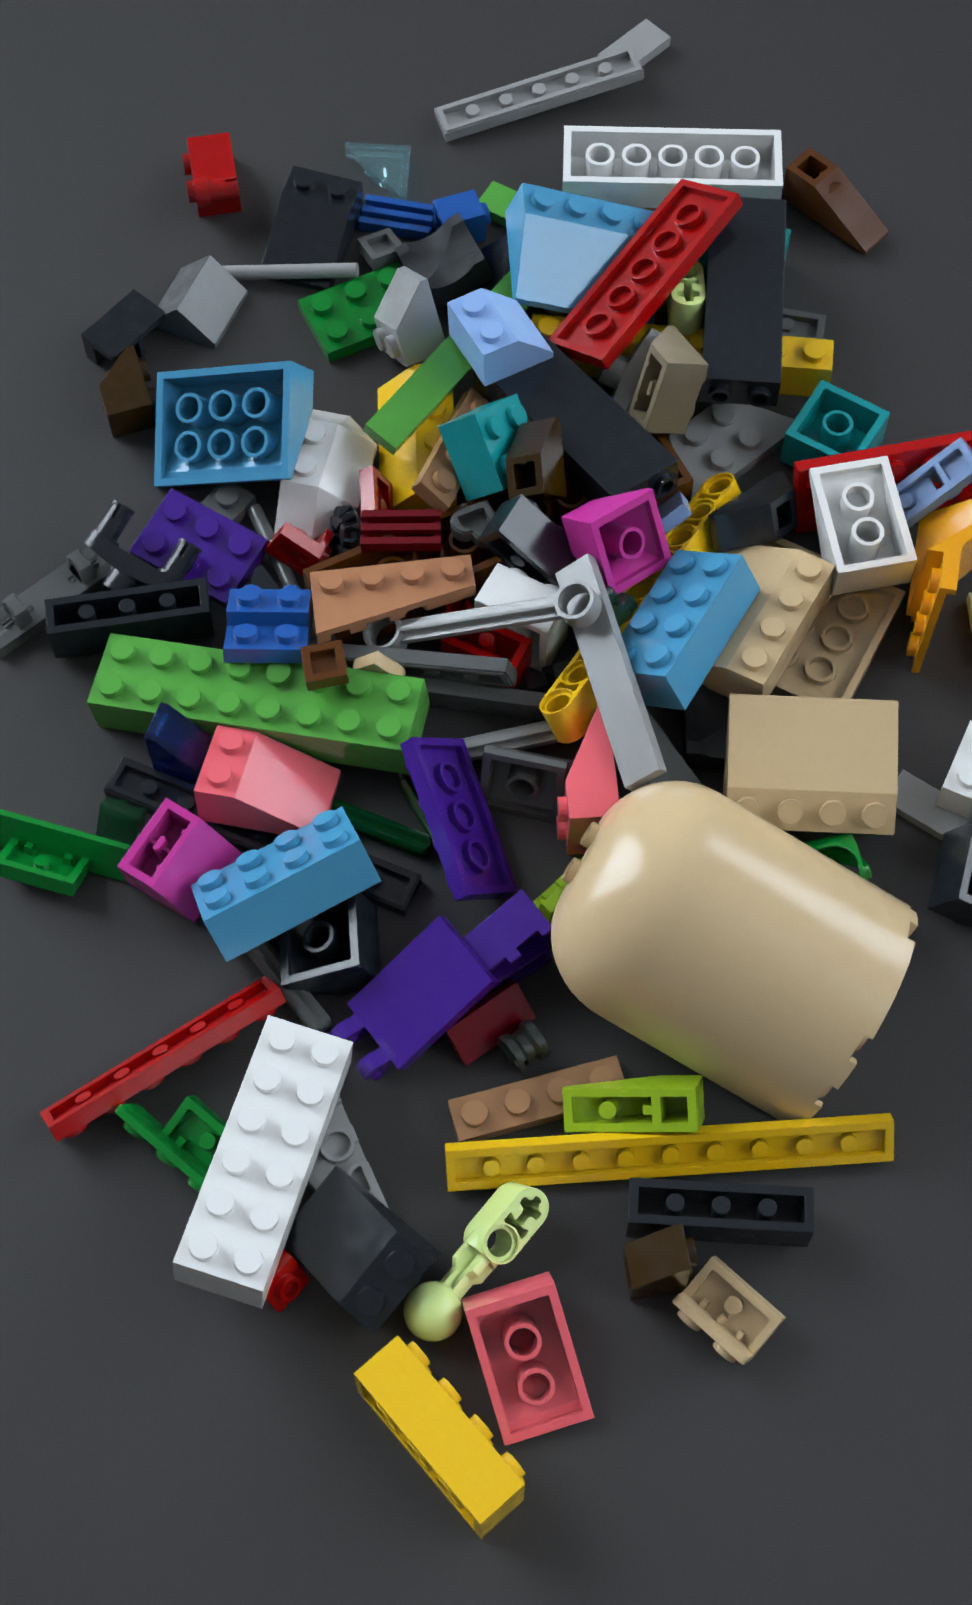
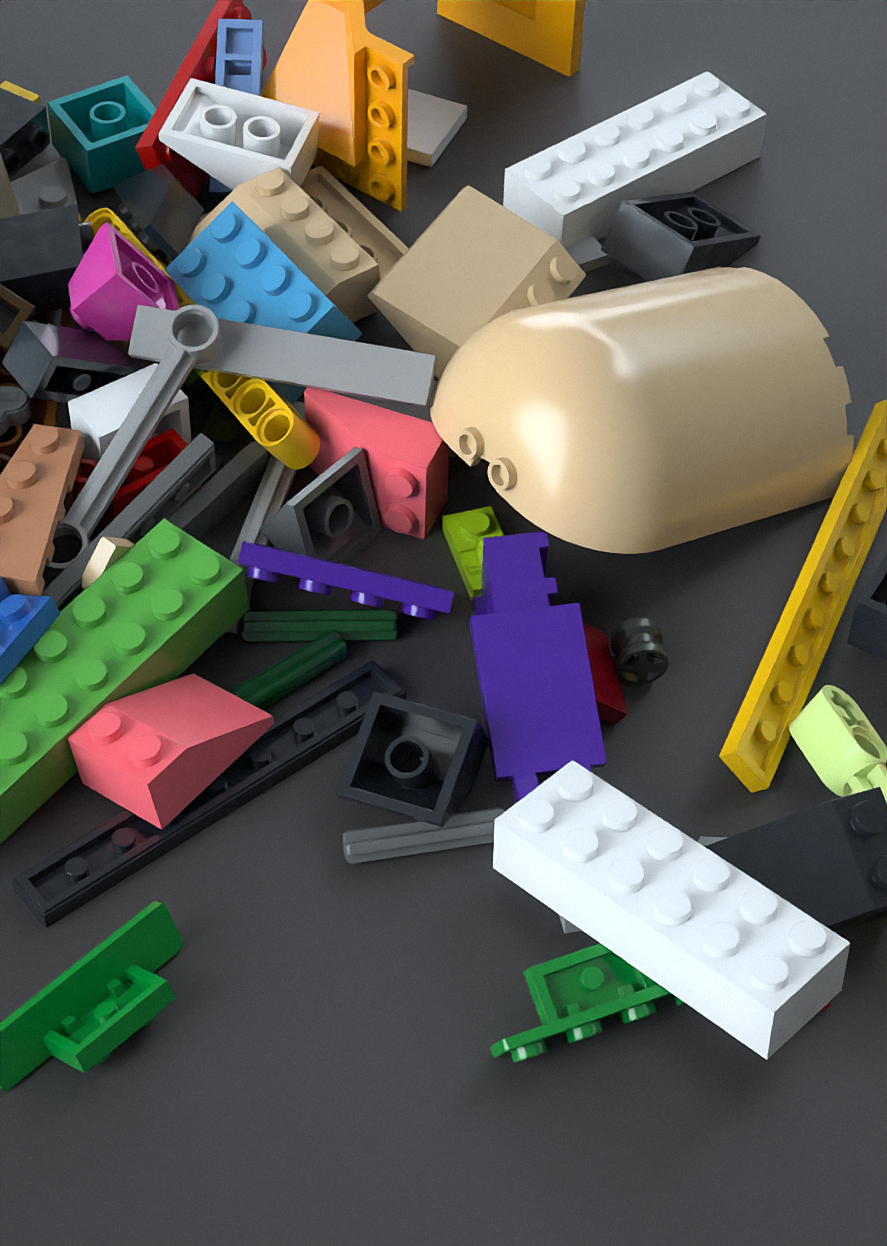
camera: 65 degrees left, 15 degrees down
(120, 820) = (106, 906): clear green tile -> none
(150, 1066) = (454, 994): red plate -> none
(173, 855) = (205, 865): dark pink slope -> none
(176, 744) = (55, 802): clear blue slope -> none
(284, 883) = (323, 757): dark azure brick -> none
(324, 665) = (87, 584): reddish brown plate -> none
(524, 1102) = (701, 675): medium nougat plate -> none
(636, 1105) = (767, 576): lime slope -> none

